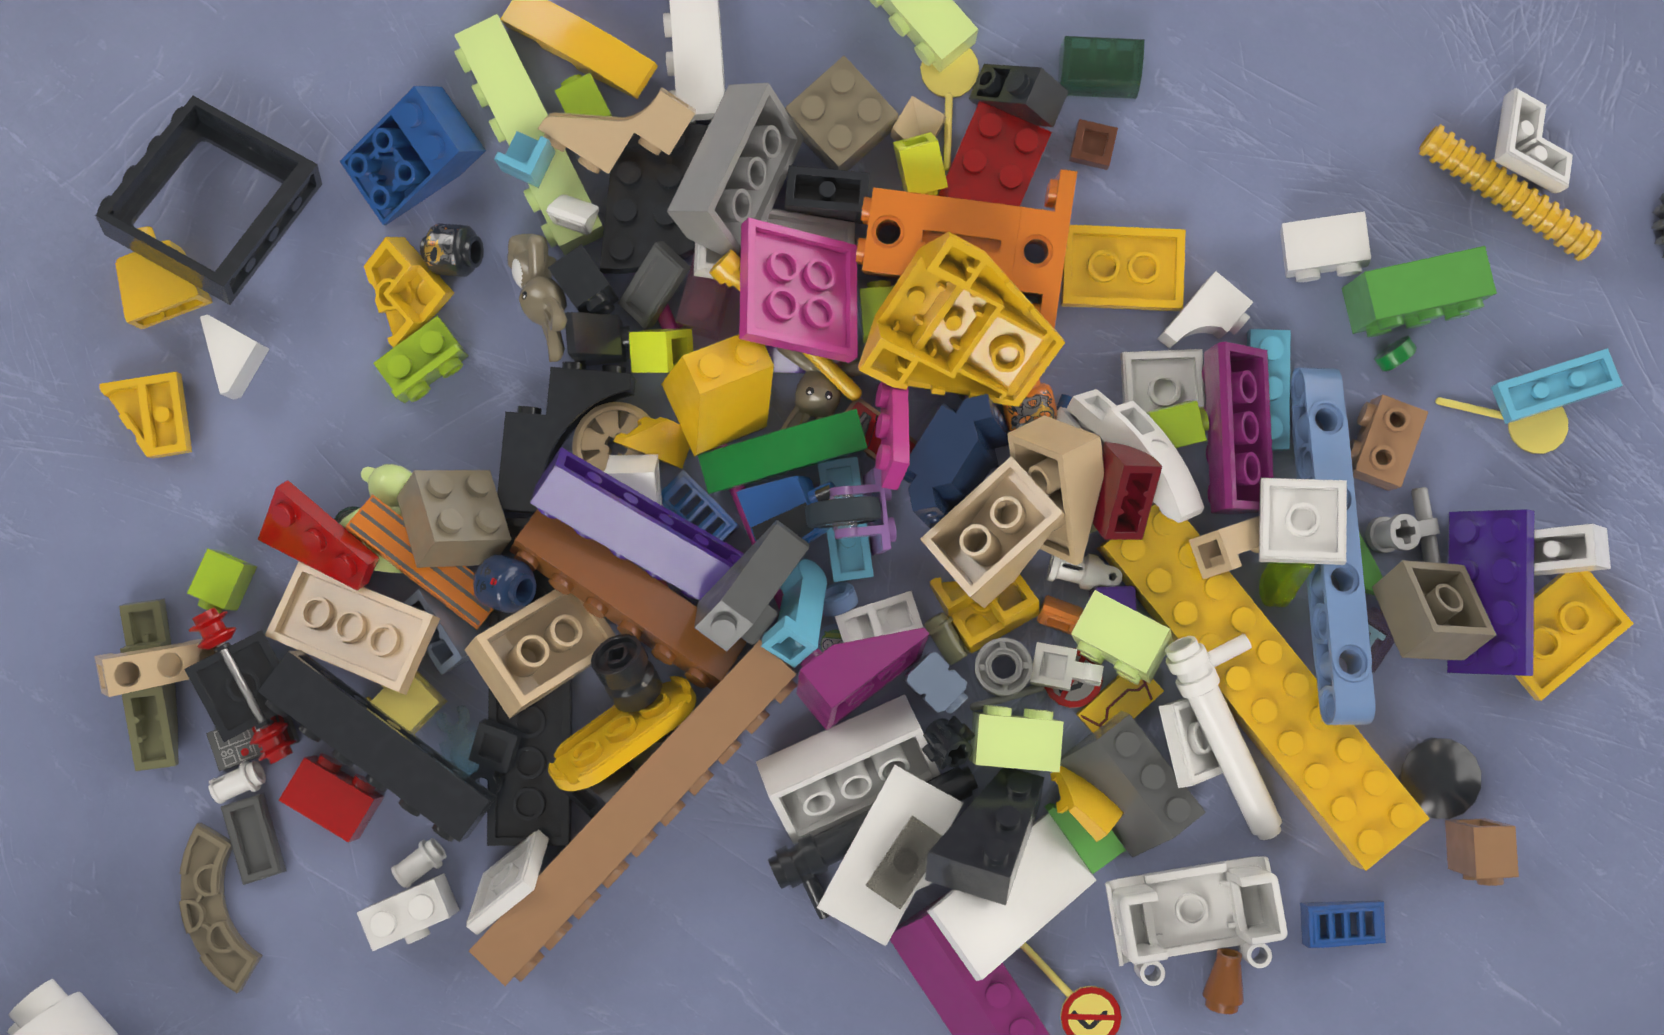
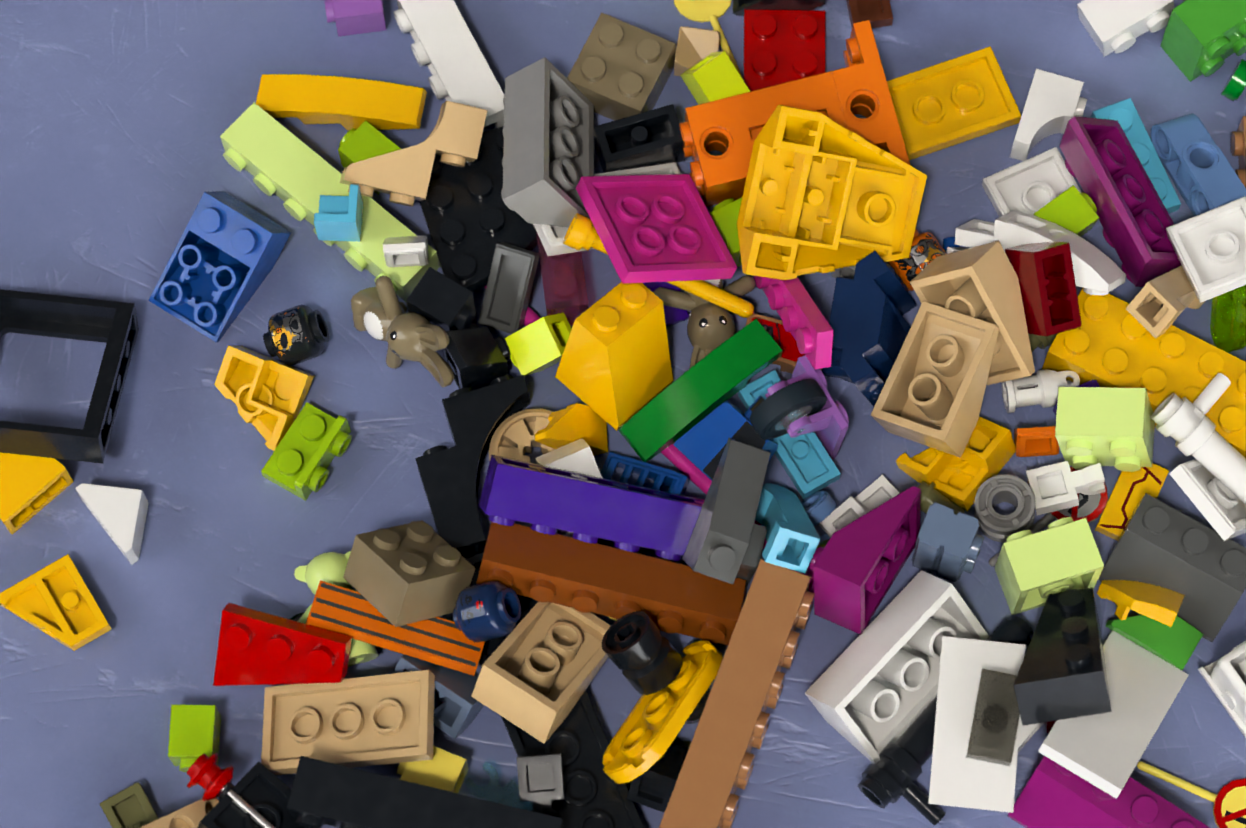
camera: 20 degrees left, 15 degrees down
(948, 742) = (985, 592): black gear -> none

